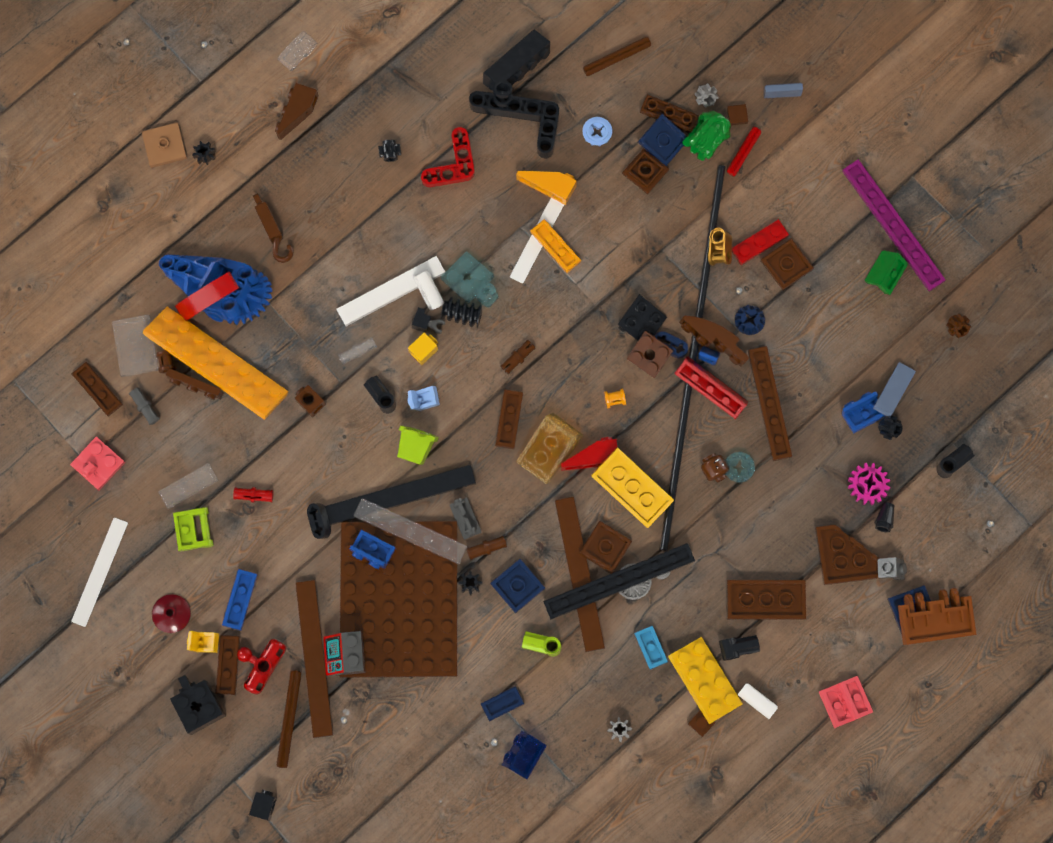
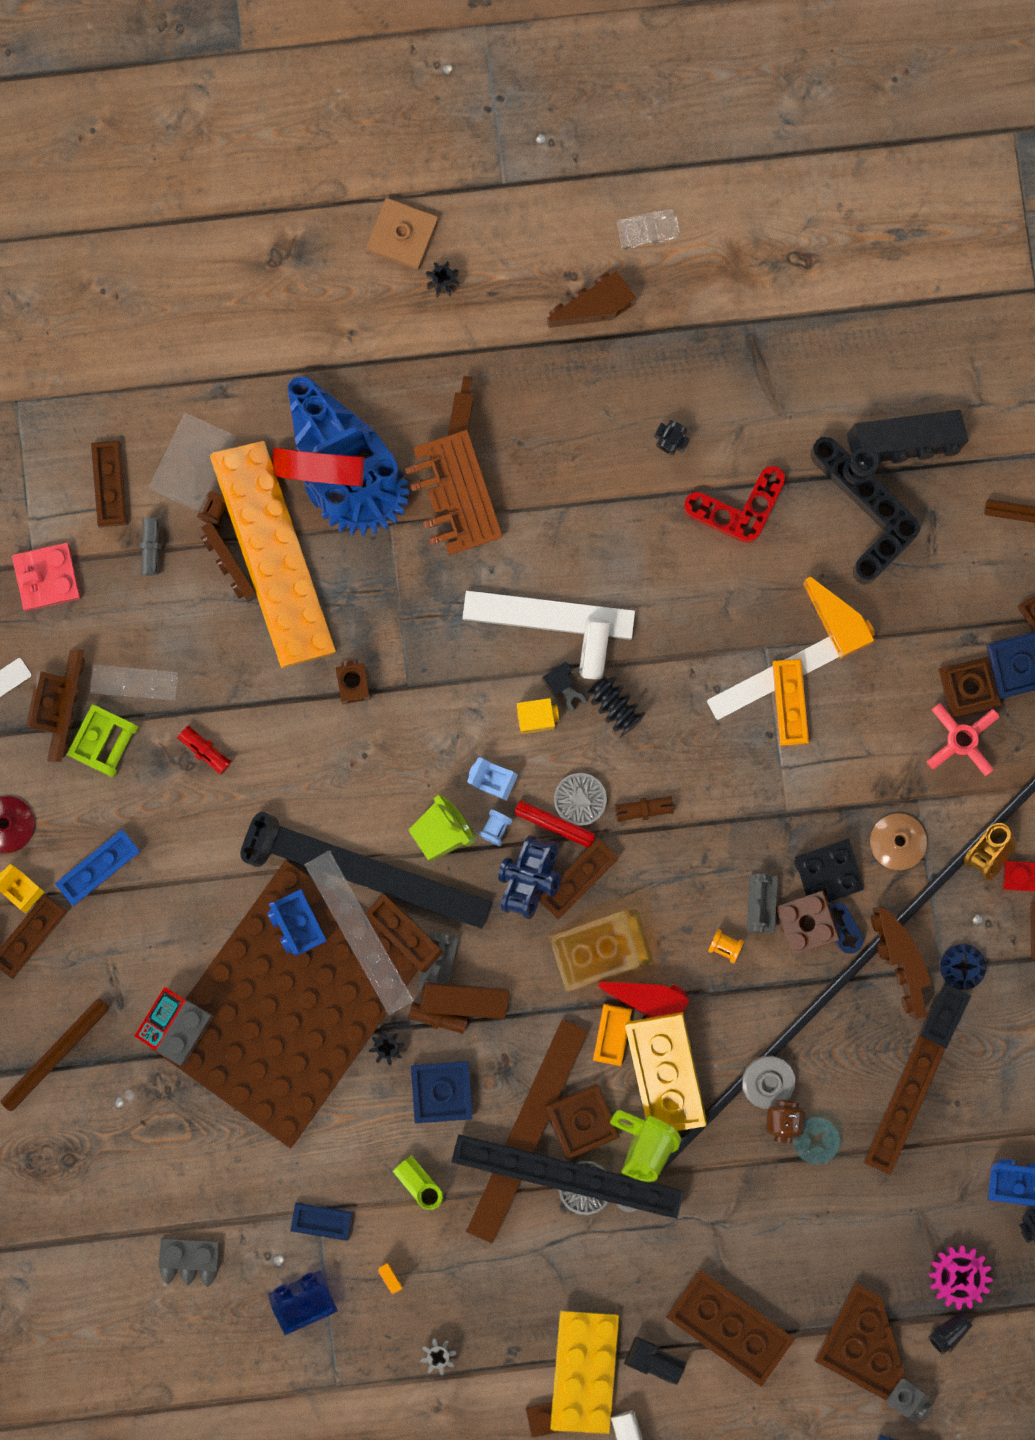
camera: 30 degrees right, 5 degrees up
(151, 527) = (53, 704): none -> reddish brown bracket
(256, 675) = (54, 974): red piece -> none
(294, 258) = (459, 491): none -> dark orange hinge
(314, 659) = (136, 1003): reddish brown tile -> none
(357, 351) = (454, 661): clear pin -> none
(379, 394) = (443, 734): black piece -> none
(435, 514) = (404, 933): none -> reddish brown plate
(443, 777) = (189, 1258): none -> dark grey plate
(444, 423) = (495, 828): none -> light blue bush
(475, 399) = (554, 824): none -> red axle
(477, 287) = (655, 685): clear light blue plate -> none
(479, 376) = (580, 799): none -> light grey wheel
(482, 435) = (529, 877): none -> dark blue axle
(494, 527) = (464, 1000): none -> reddish brown tile
(562, 706) = (390, 1278): none -> light orange tile
(588, 489) = (612, 1035): none -> light orange tile
(598, 123) = (954, 584): light blue gear -> none
(618, 362) = (762, 903): none -> dark grey hinge
(651, 532) = (649, 1146): none -> lime container
(651, 647) = (548, 1284): dark azure plate -> none
(663, 193) = (972, 732): none -> coral bar
(664, 287) = (883, 841): none -> medium nougat dish
(690, 453) = (768, 1081): none -> light grey wheel
(708, 355) = (880, 975): blue slope -> none
(711, 387) = (854, 1017): red slope -> none
(759, 350) = (945, 1015): none -> black plate

